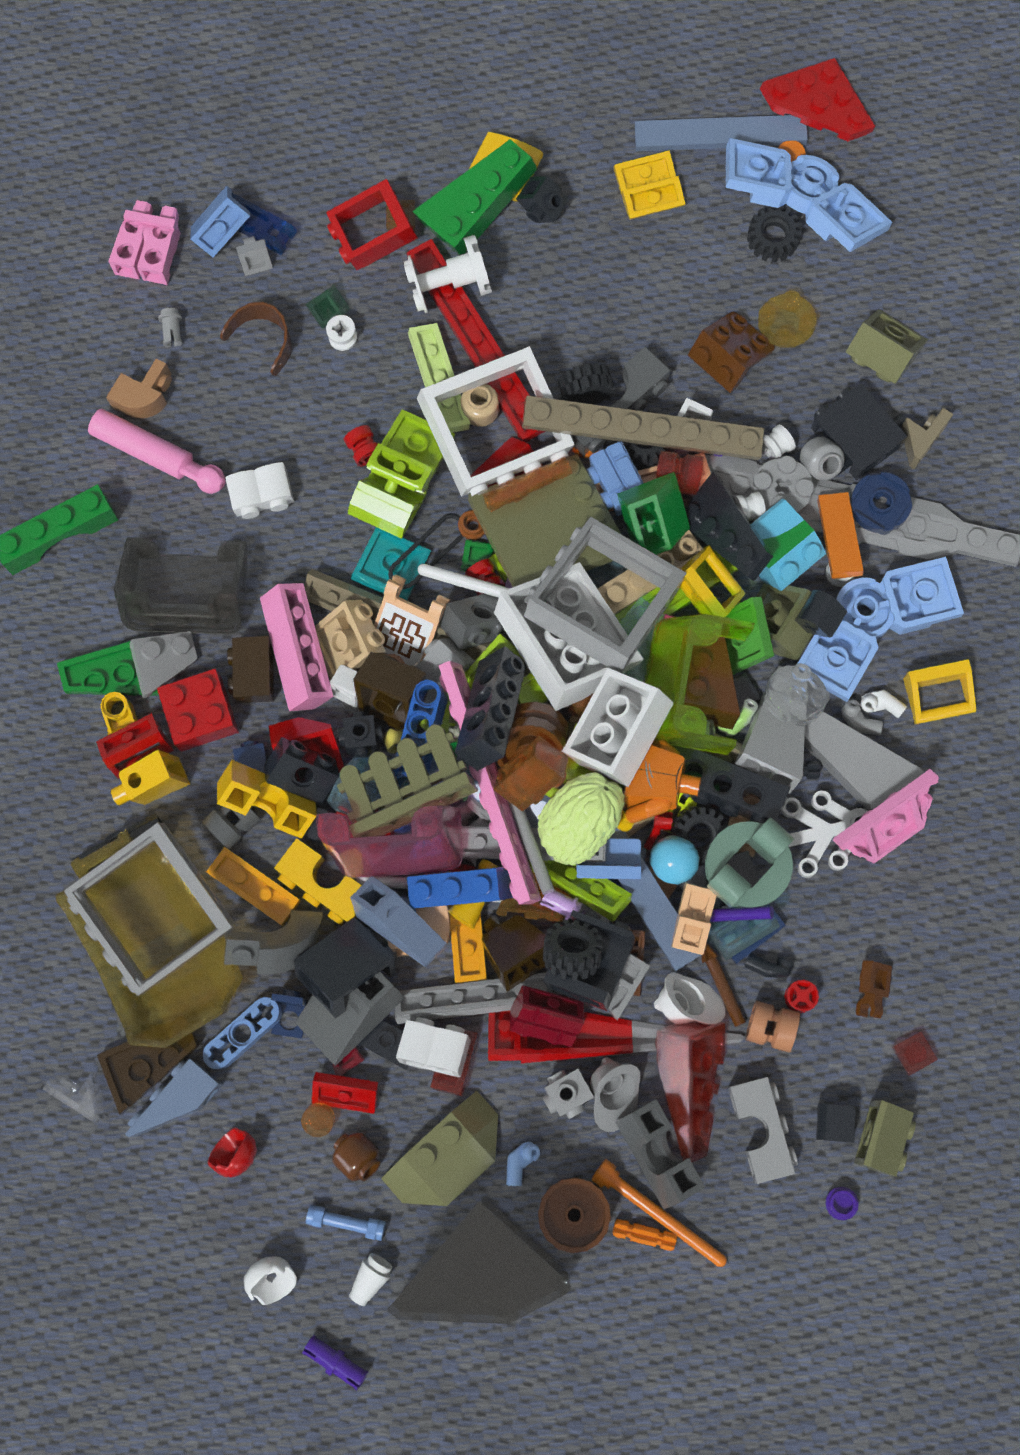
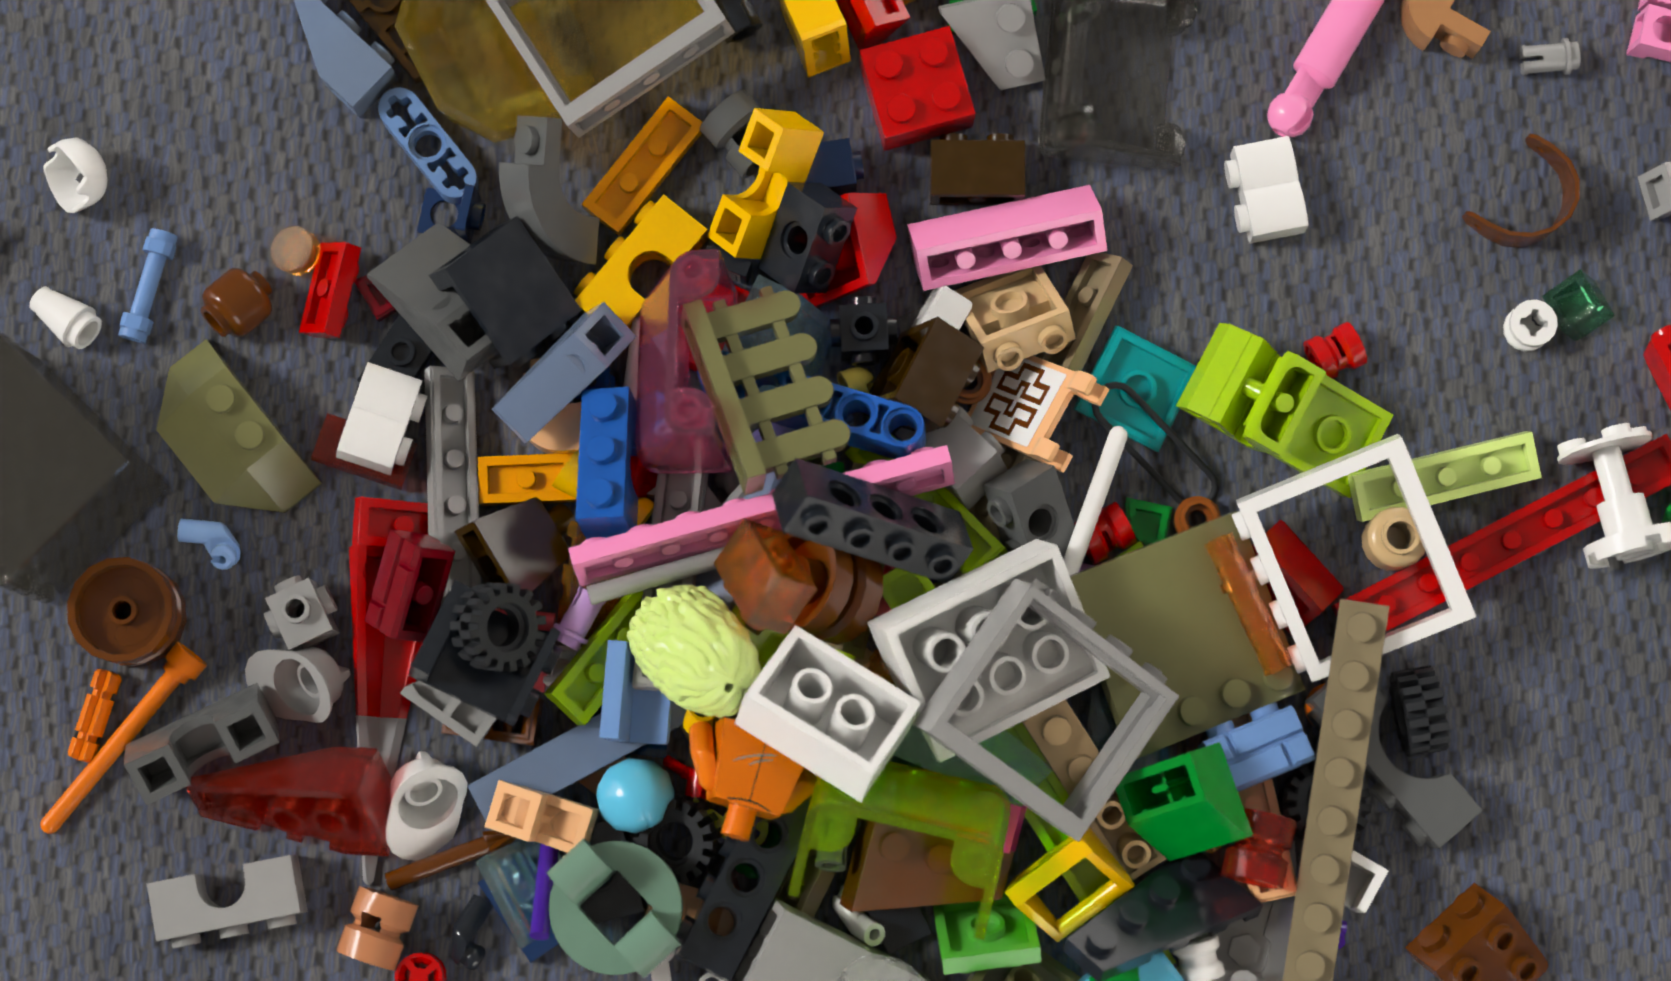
camera: 85 degrees right, 5 degrees up
(223, 1158) = (251, 113): red hair -> none

